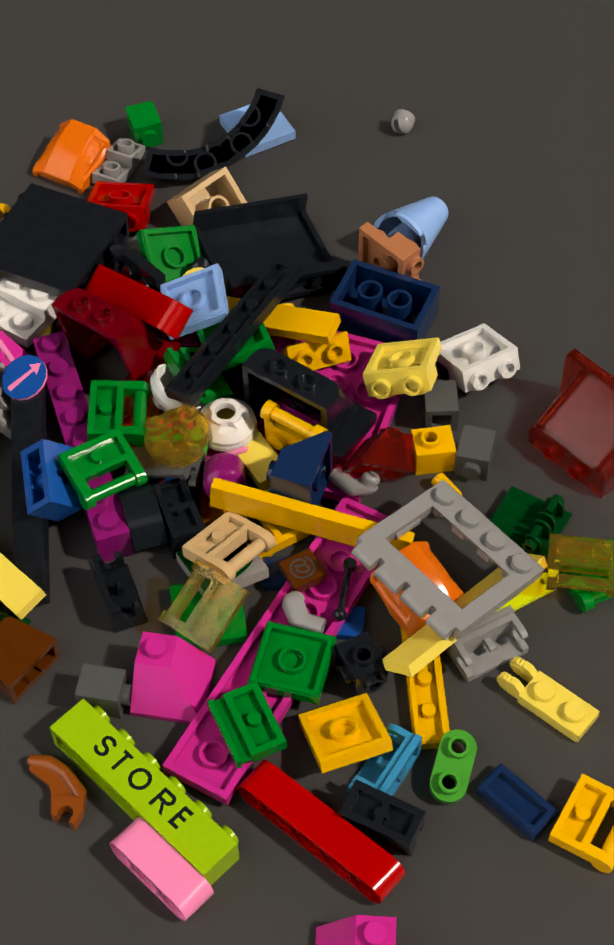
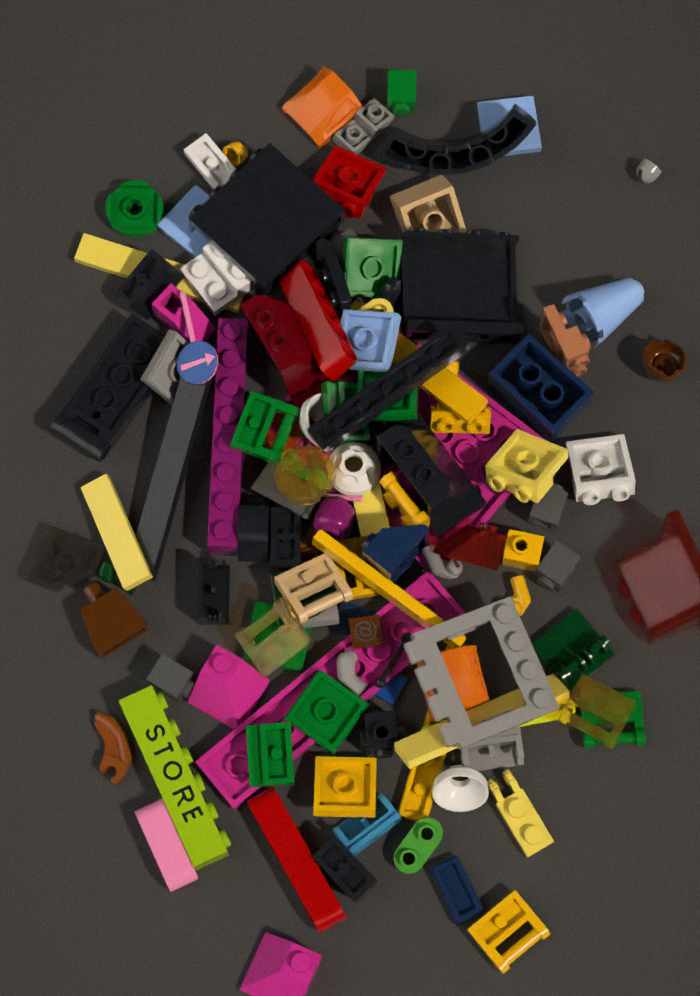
camera: 20 degrees right, 20 degrees up
(45, 483) = (187, 476): blue brick -> none
(99, 458) = (228, 475): green plate -> none
(482, 698) = (460, 795): none -> white piece
(492, 254) = (664, 360): none -> reddish brown hair

